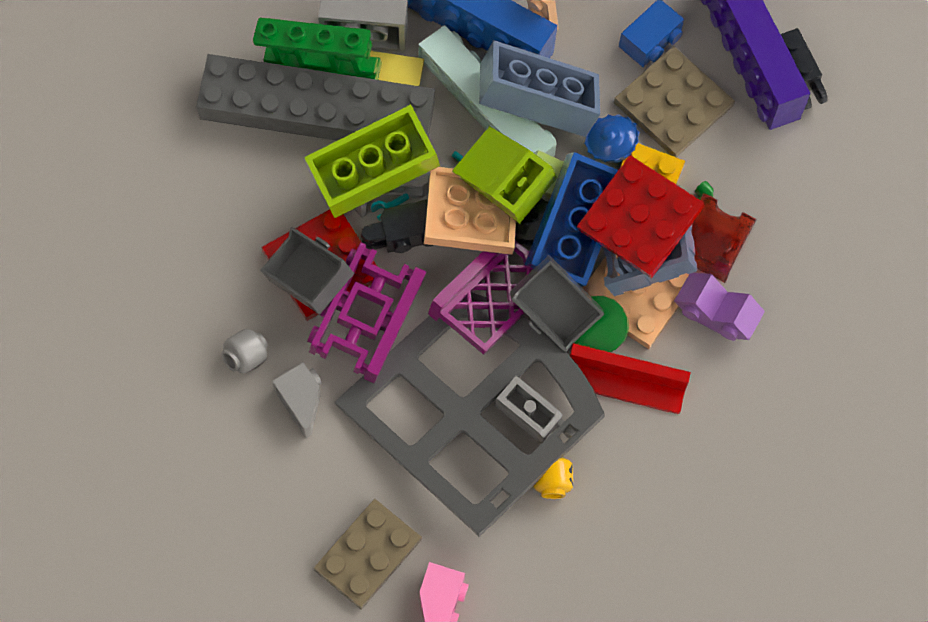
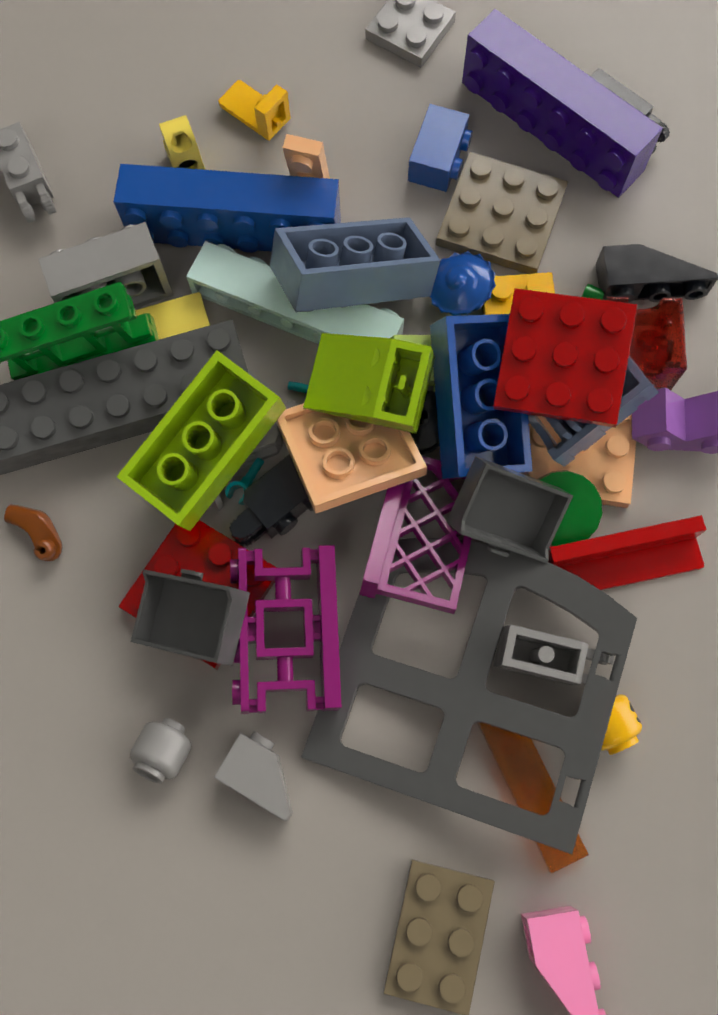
camera: 20 degrees left, 5 degrees up
(233, 171) = (39, 528): none -> dark orange arm
(478, 483) = (529, 785): none -> clear orange tile
(750, 192) = (650, 274): none -> black slope

